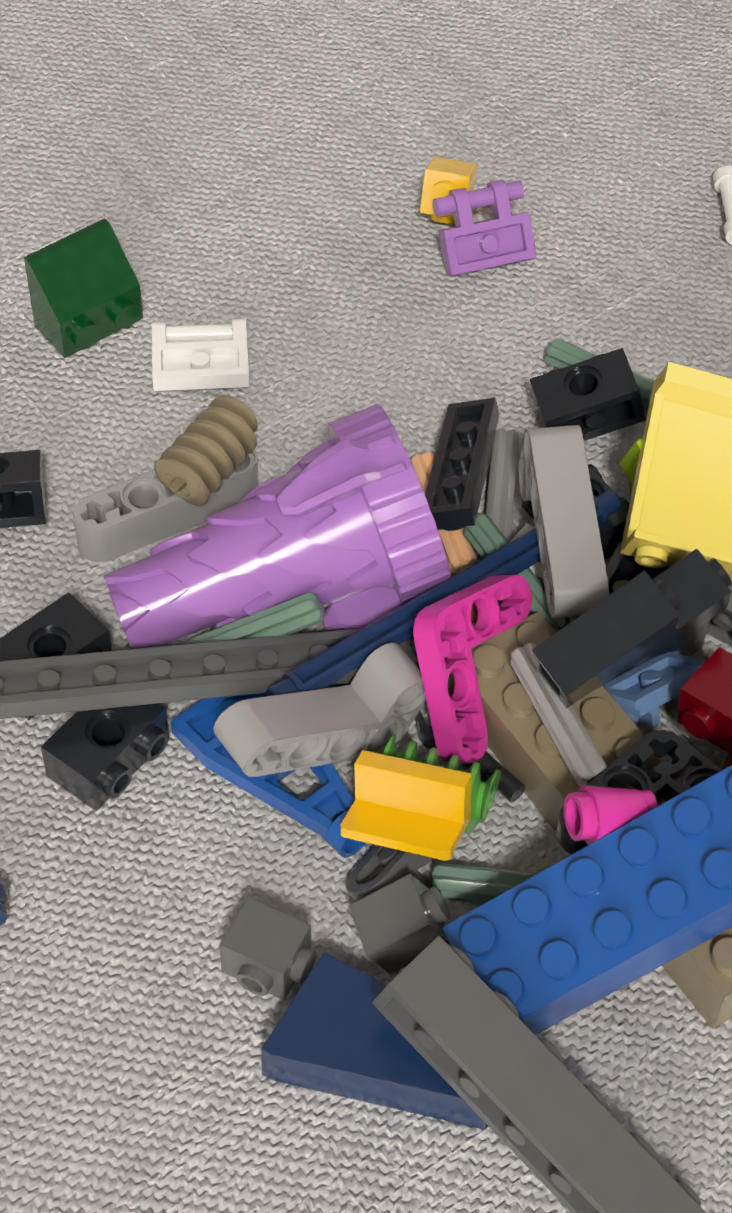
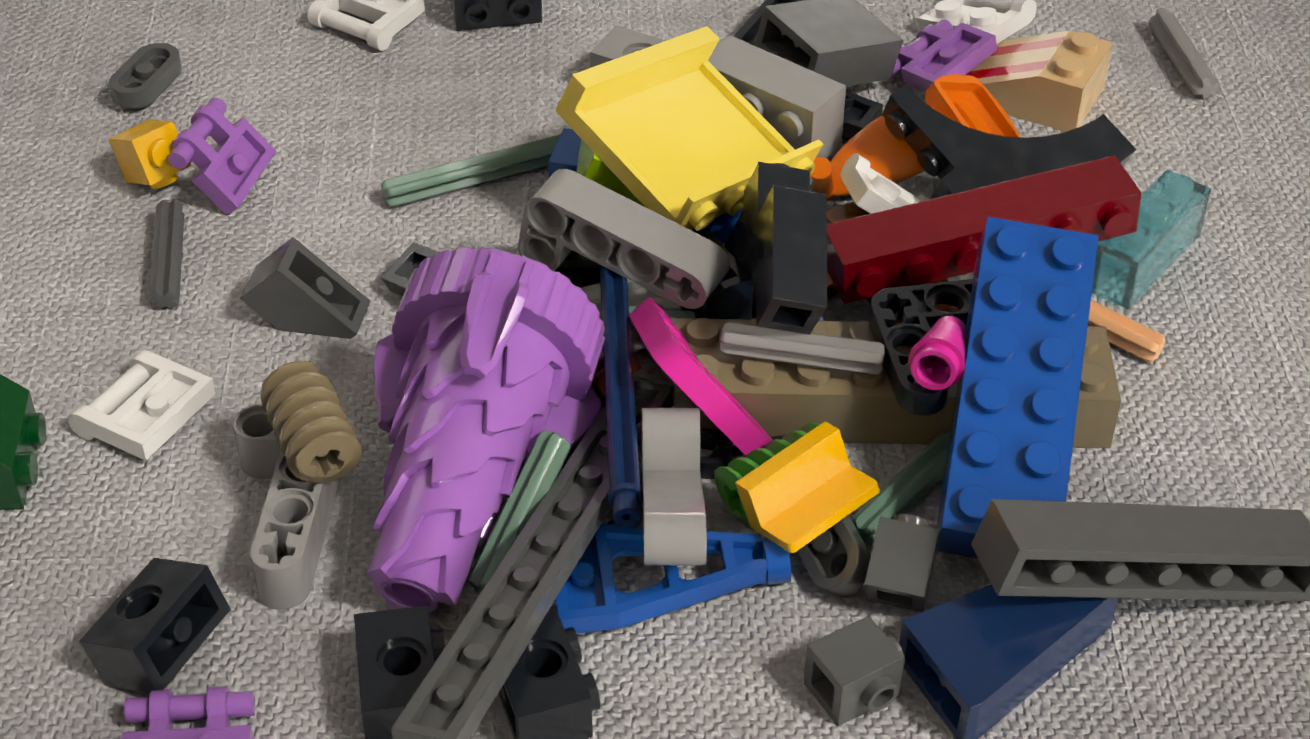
camera: 55 degrees left, 10 degrees down
(365, 269) = (167, 254): none -> dark grey axle
(384, 370) = (304, 294): none -> dark grey slope
(543, 131) = (145, 76): none -> dark grey plate
(591, 394) = (473, 191): black brick -> none

